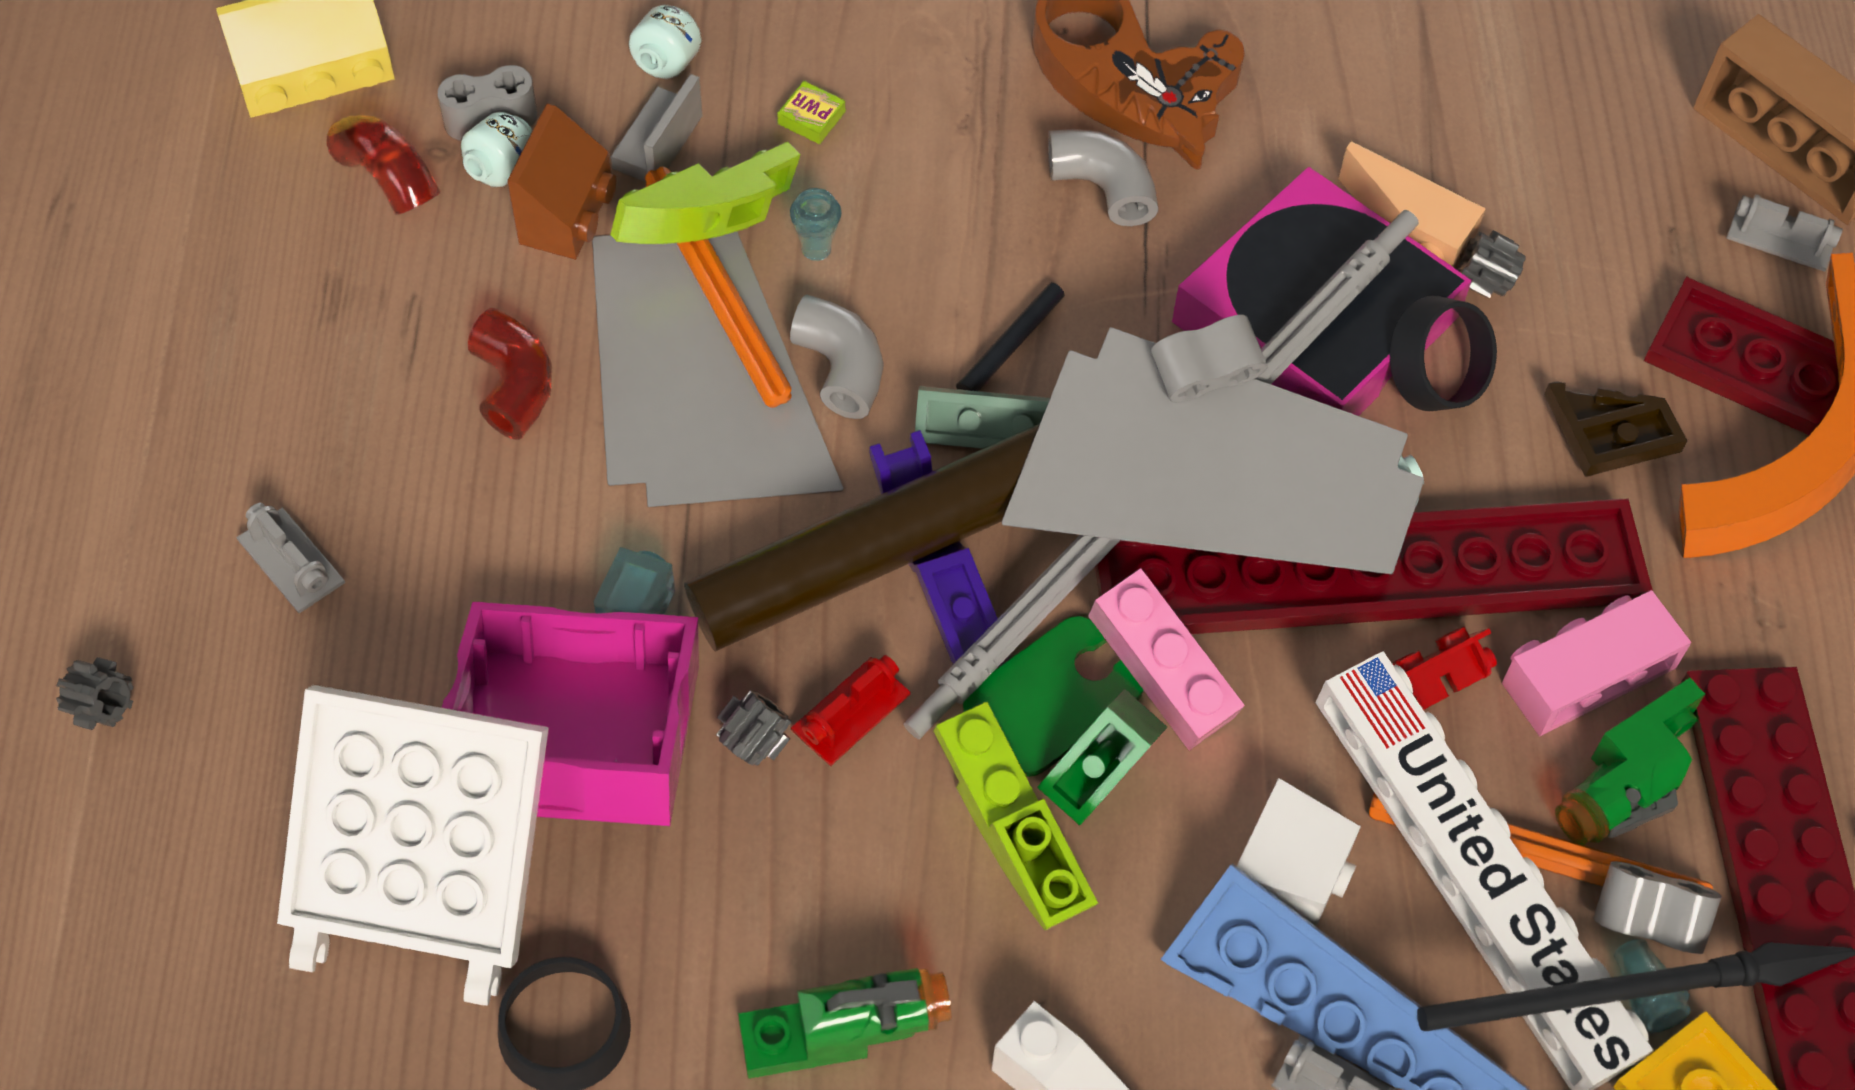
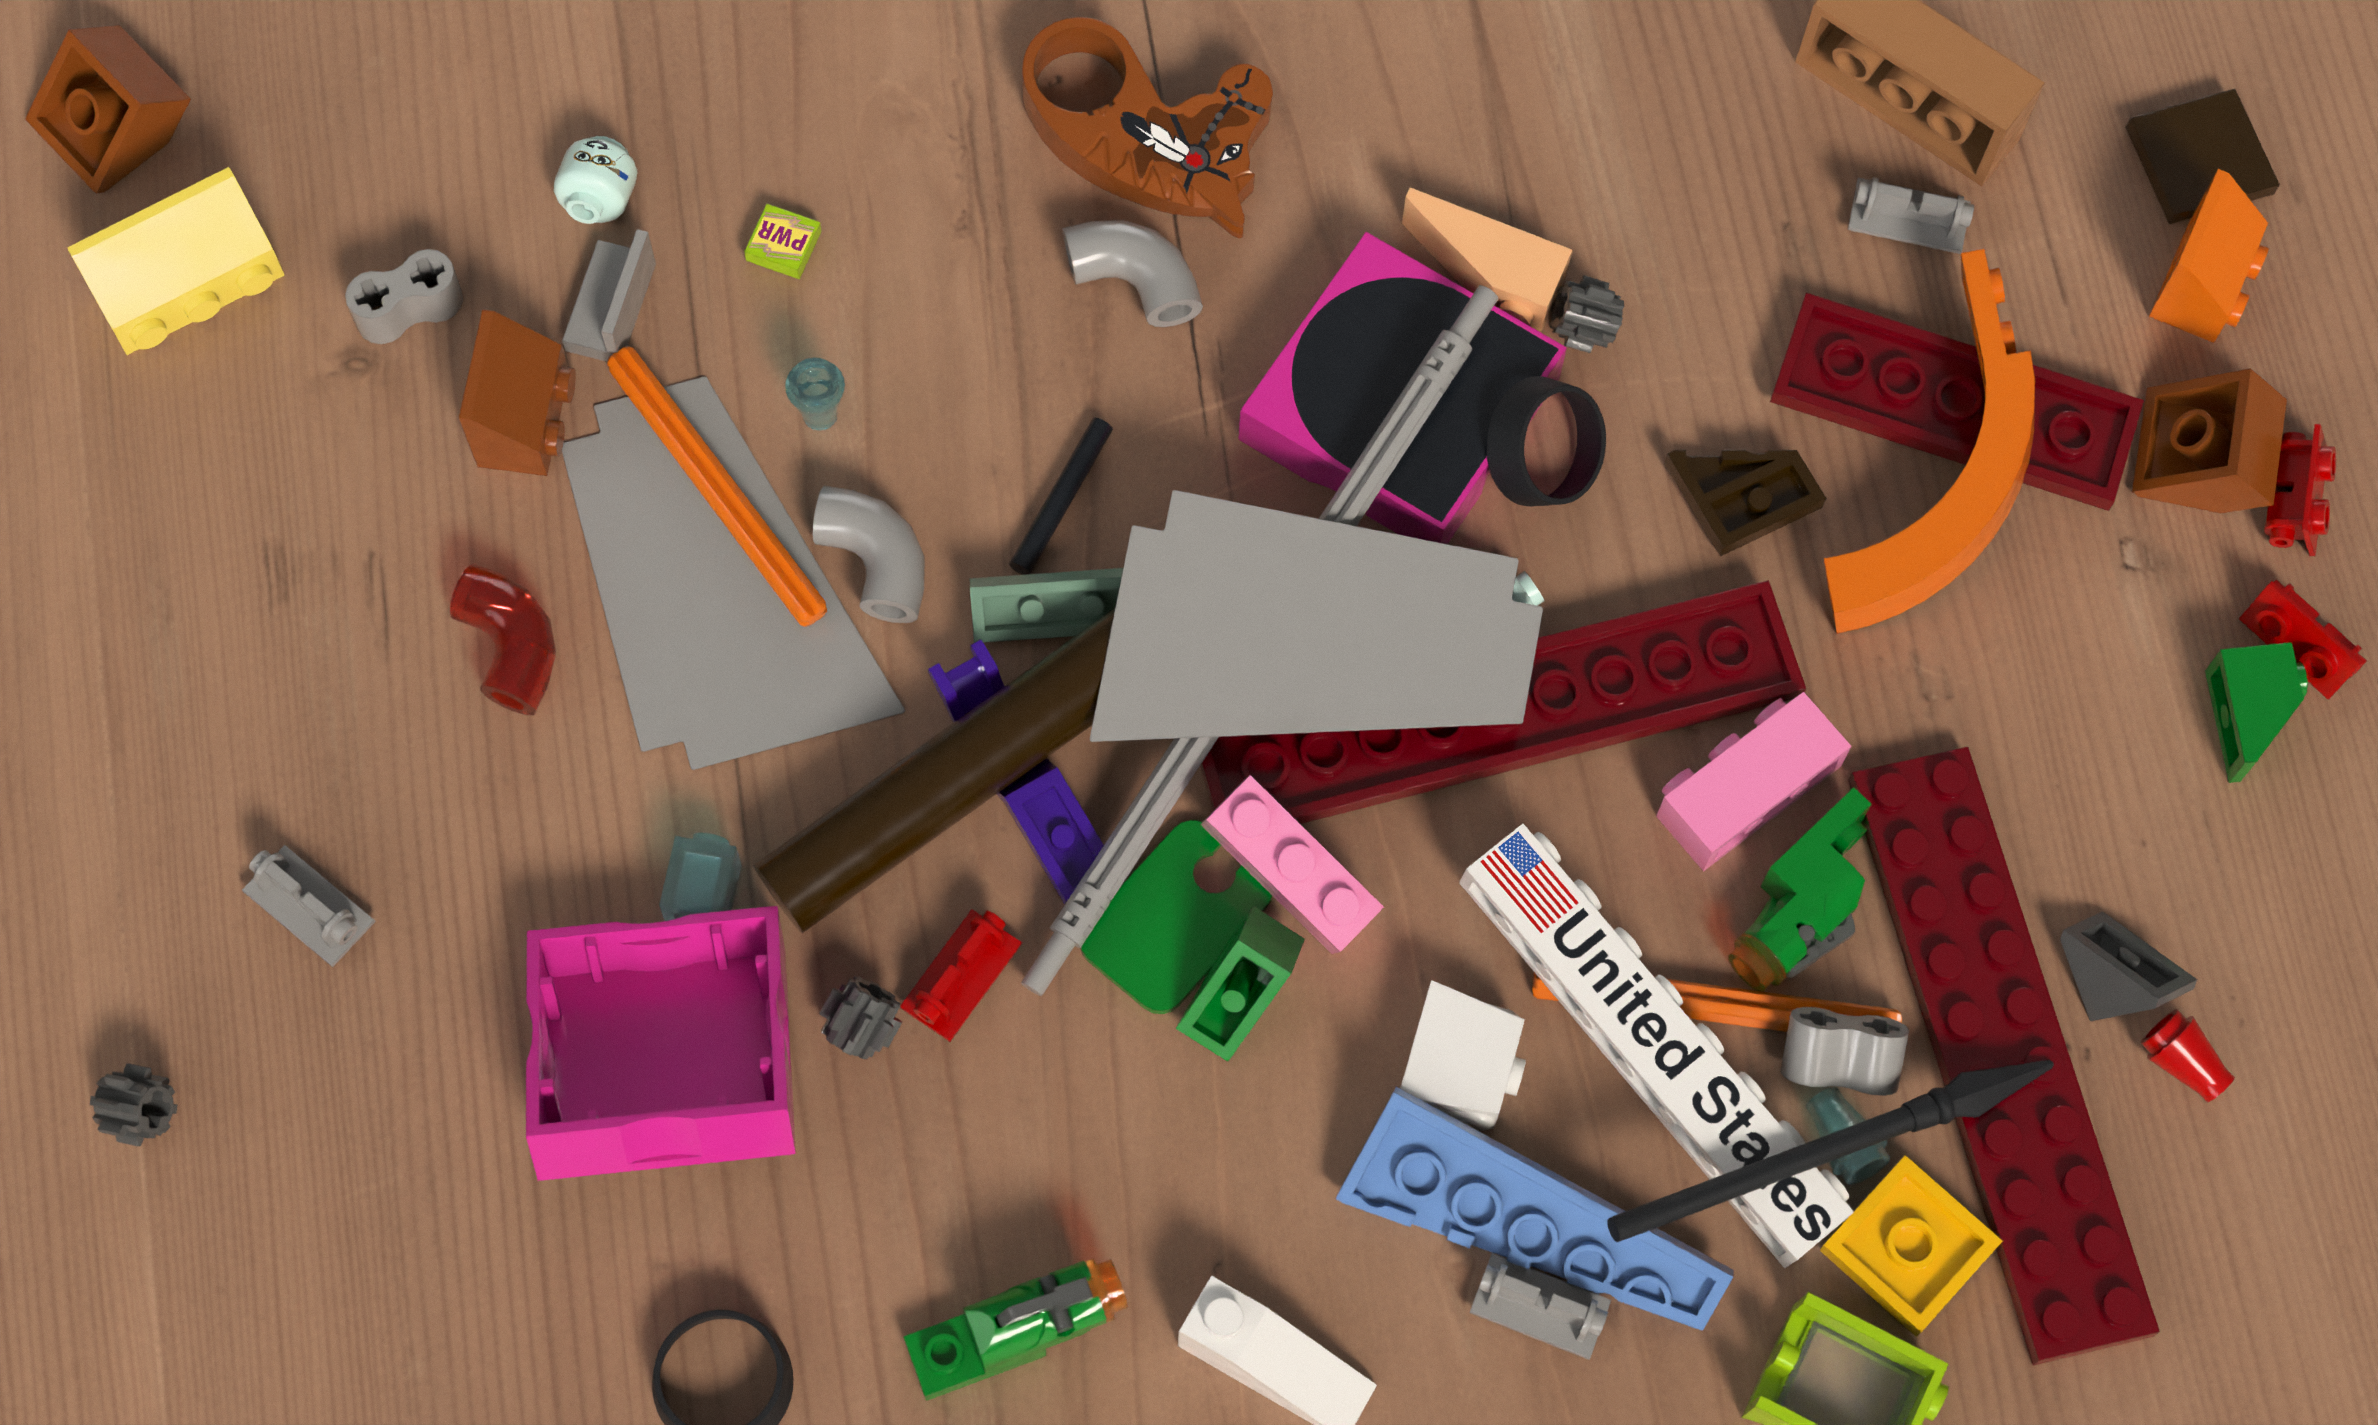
camera: 10 degrees left, 10 degrees up
(386, 156) = (303, 393): clear red cylinder -> none
(411, 831) = (524, 1214): white plate -> none
(494, 148) = (430, 355): light aqua head -> none
(703, 206) = (682, 396): lime slope -> none
(1012, 819) = (1156, 1070): lime slope -> none
(1209, 358) = (1288, 515): light grey axle -> none
(1458, 658) = (1603, 800): red hinge -> none

